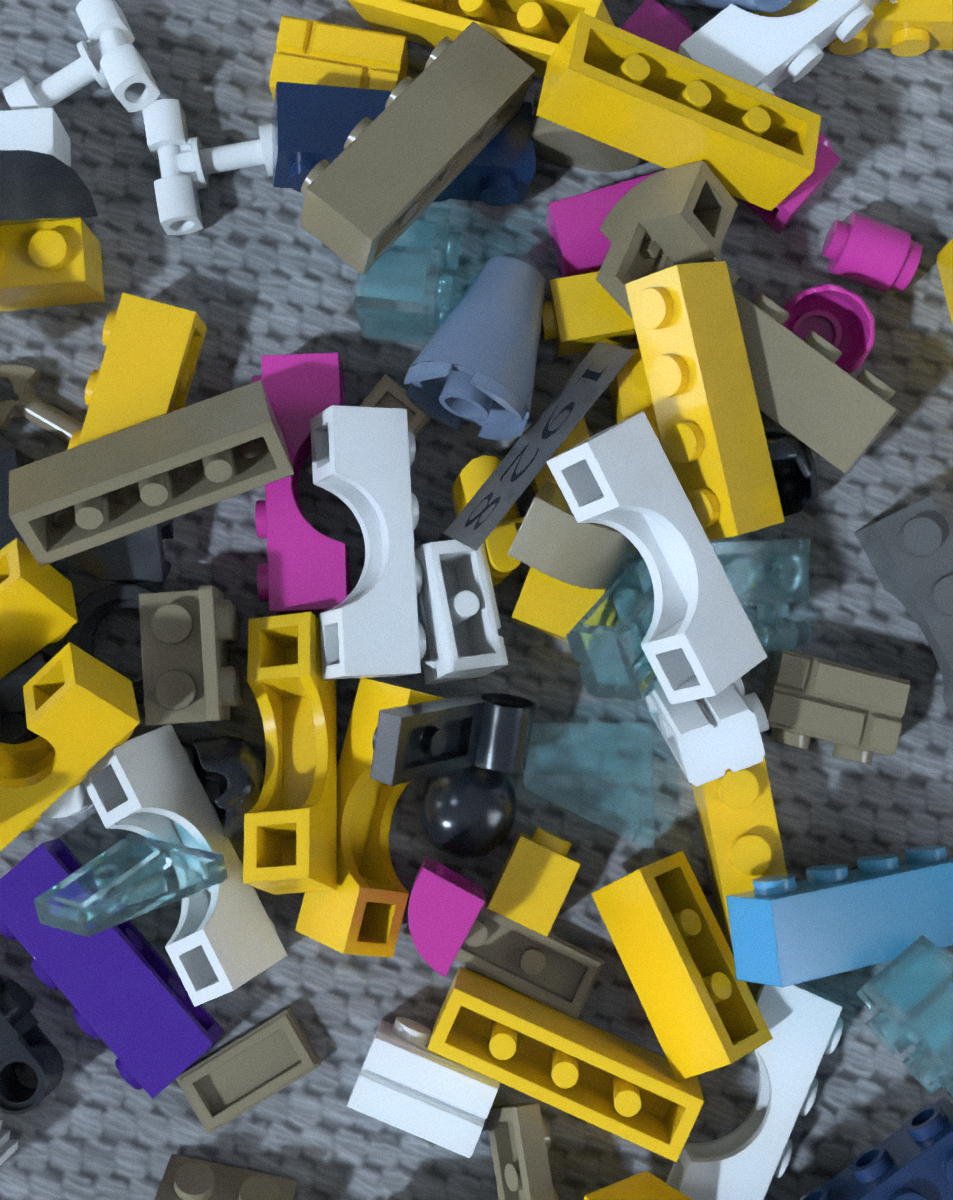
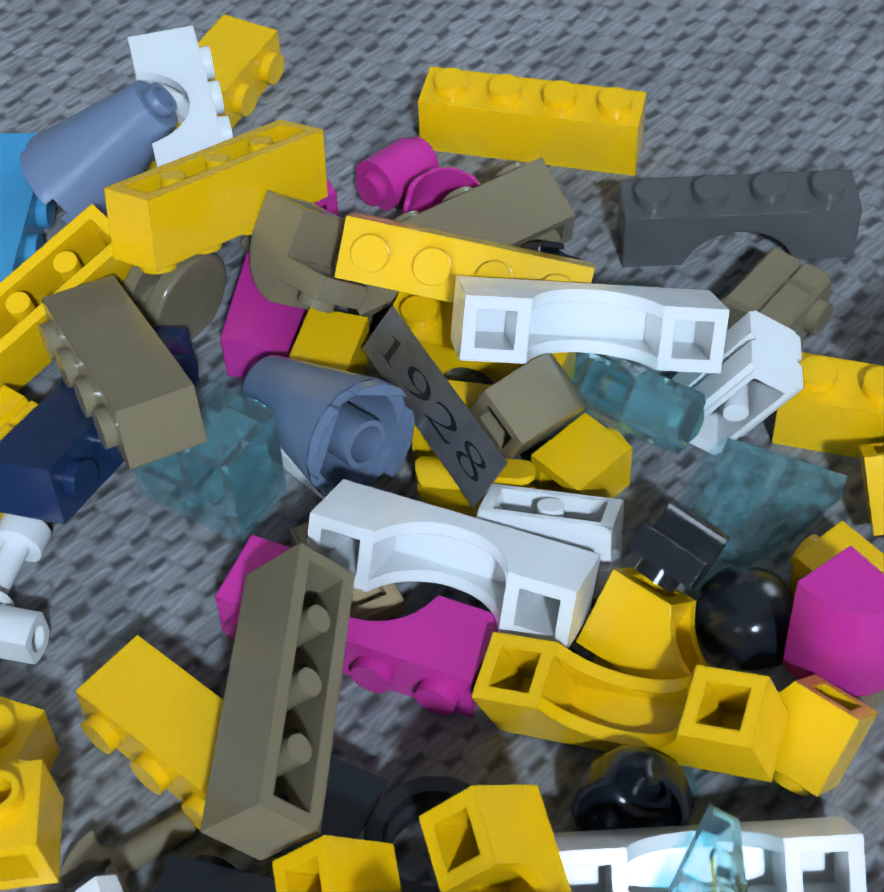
camera: 65 degrees left, 35 degrees down
(188, 656) = (480, 741): dark tan bracket -> none

